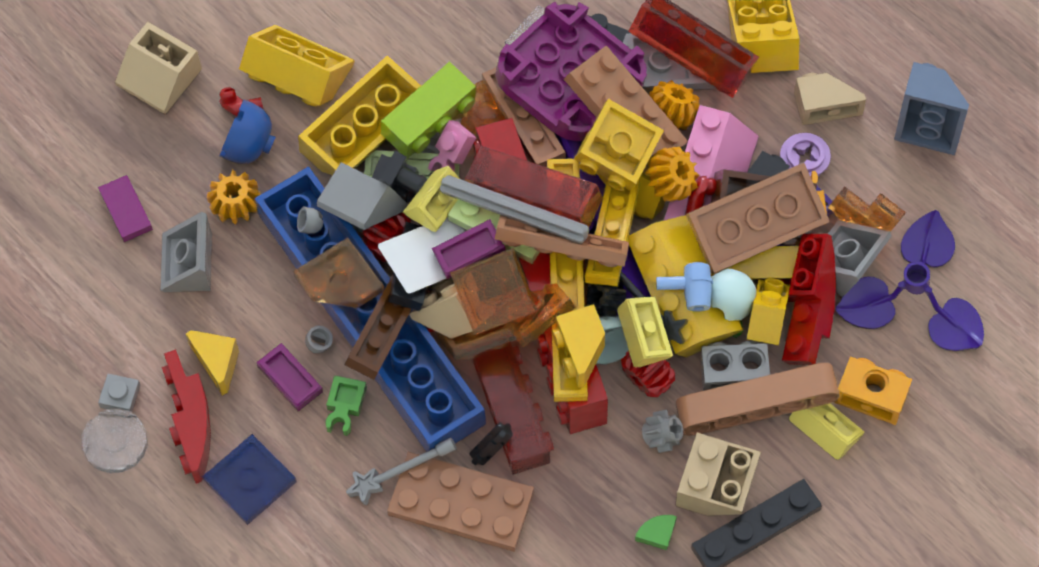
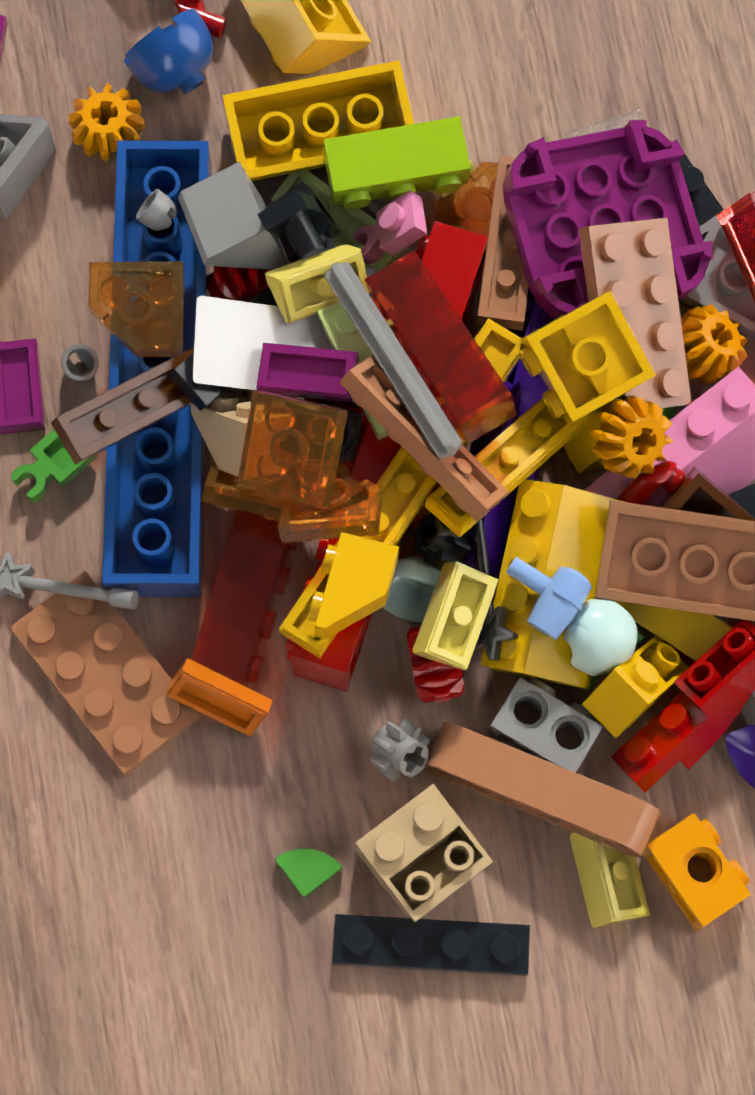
camera: 30 degrees right, 10 degrees up
(491, 443) = (181, 629): black axle -> none
(539, 467) = (219, 697): none -> orange tile

